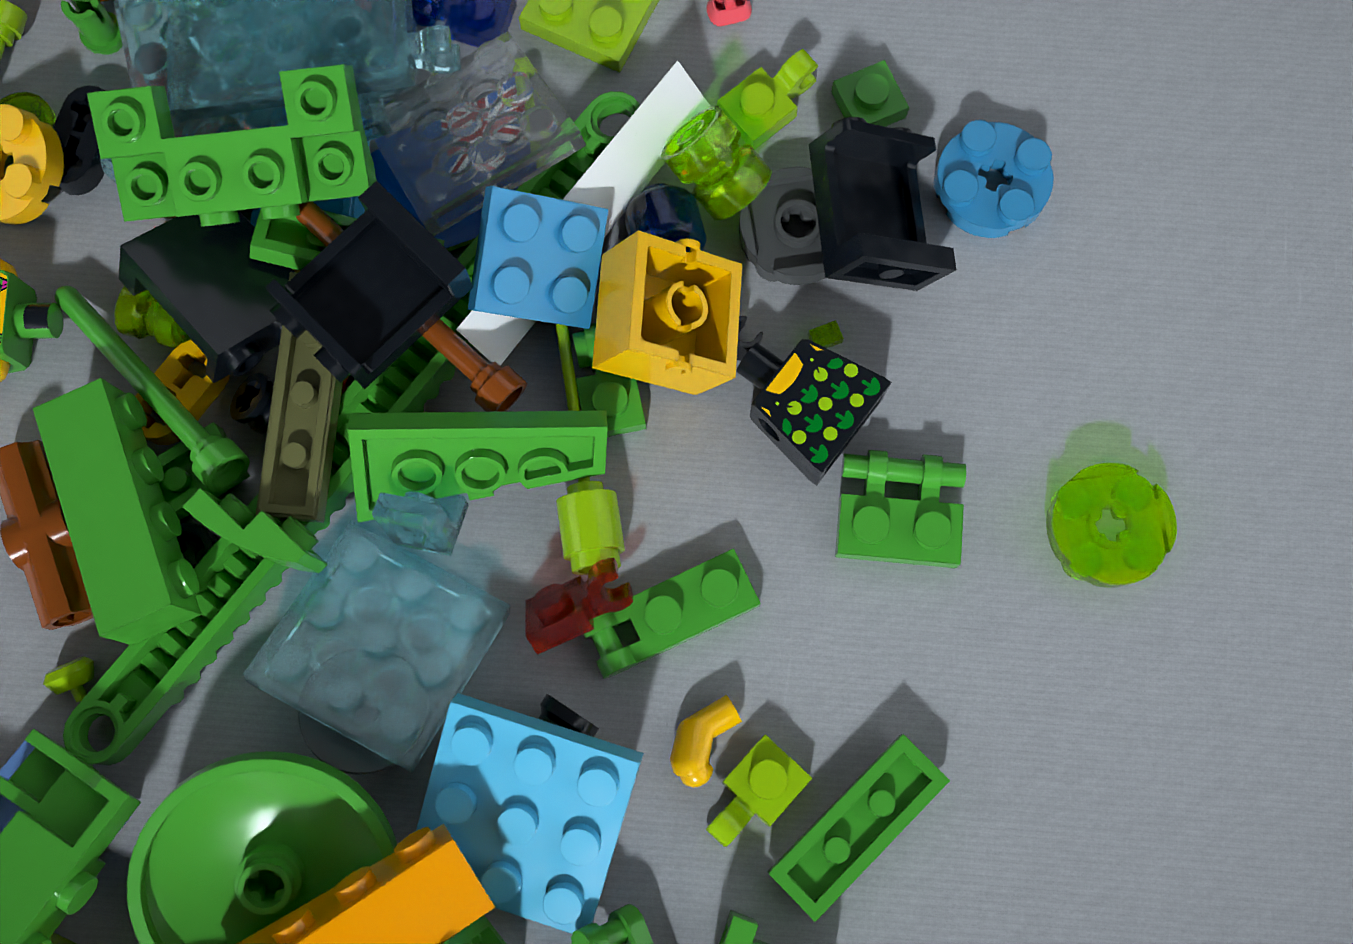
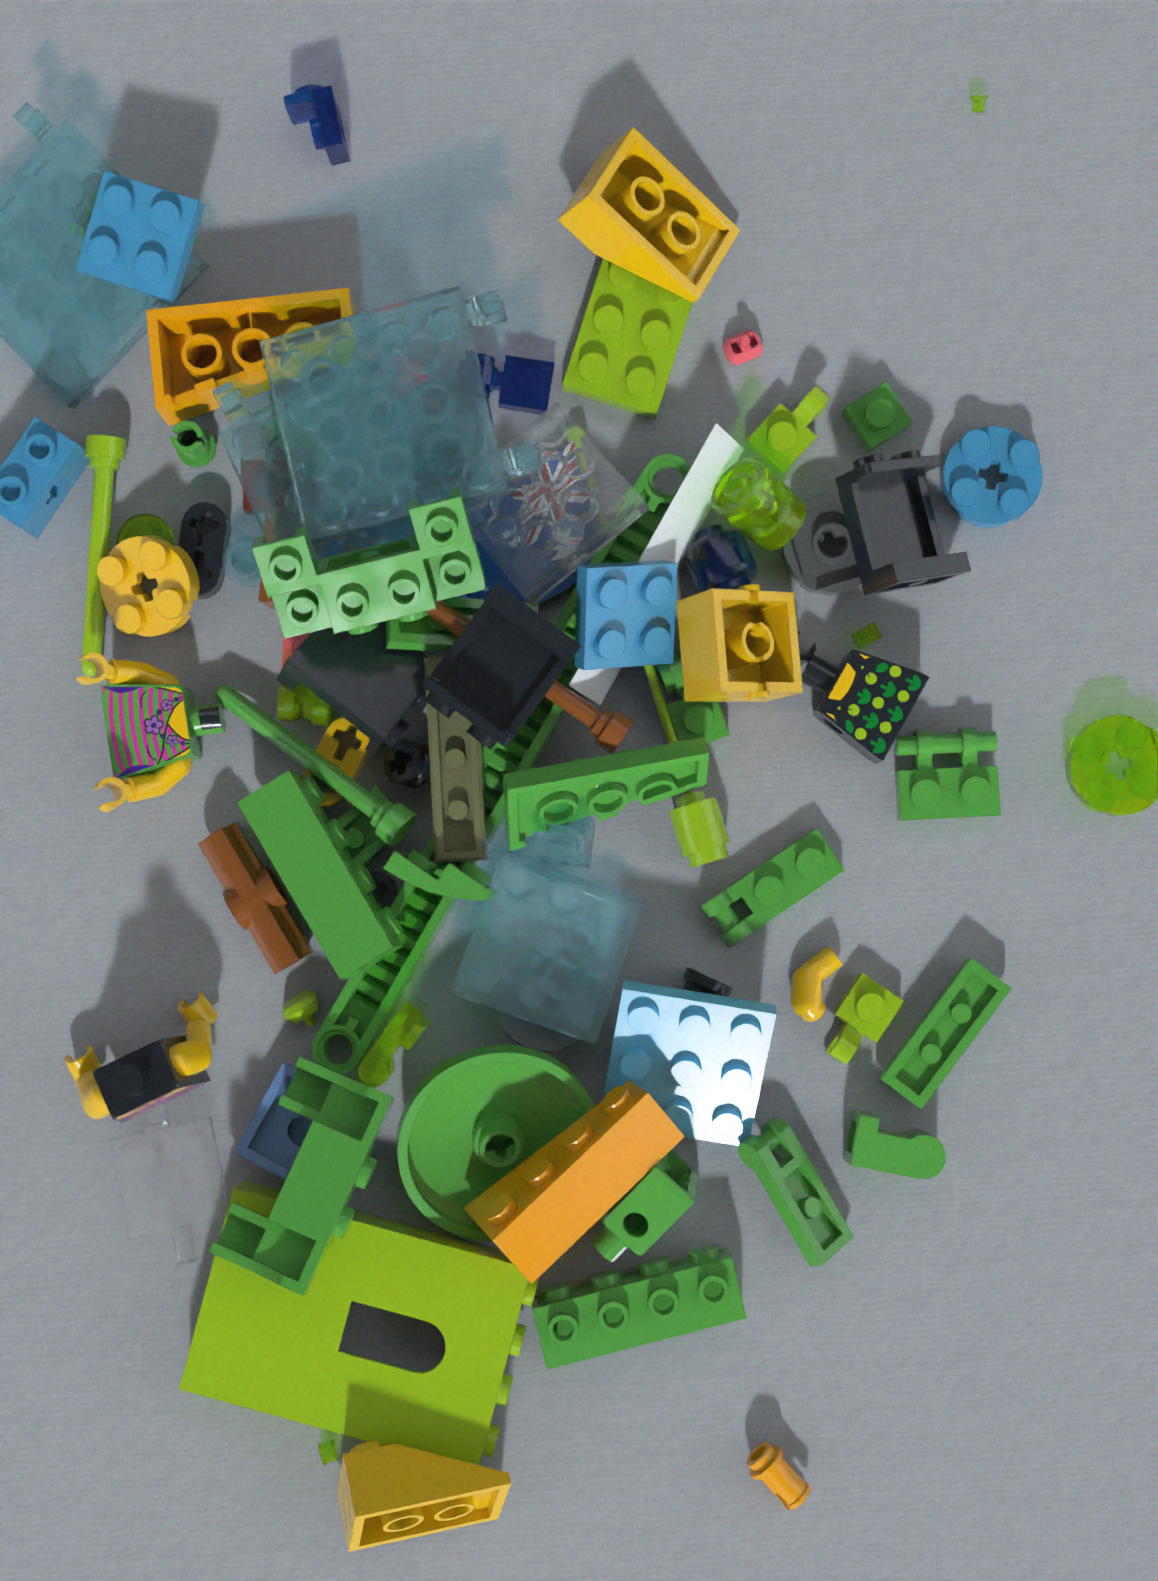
camera: 15 degrees left, 10 degrees up
(170, 714) = (402, 1031): none -> clear neon green plate
(568, 609) = (695, 896): clear red plate -> none

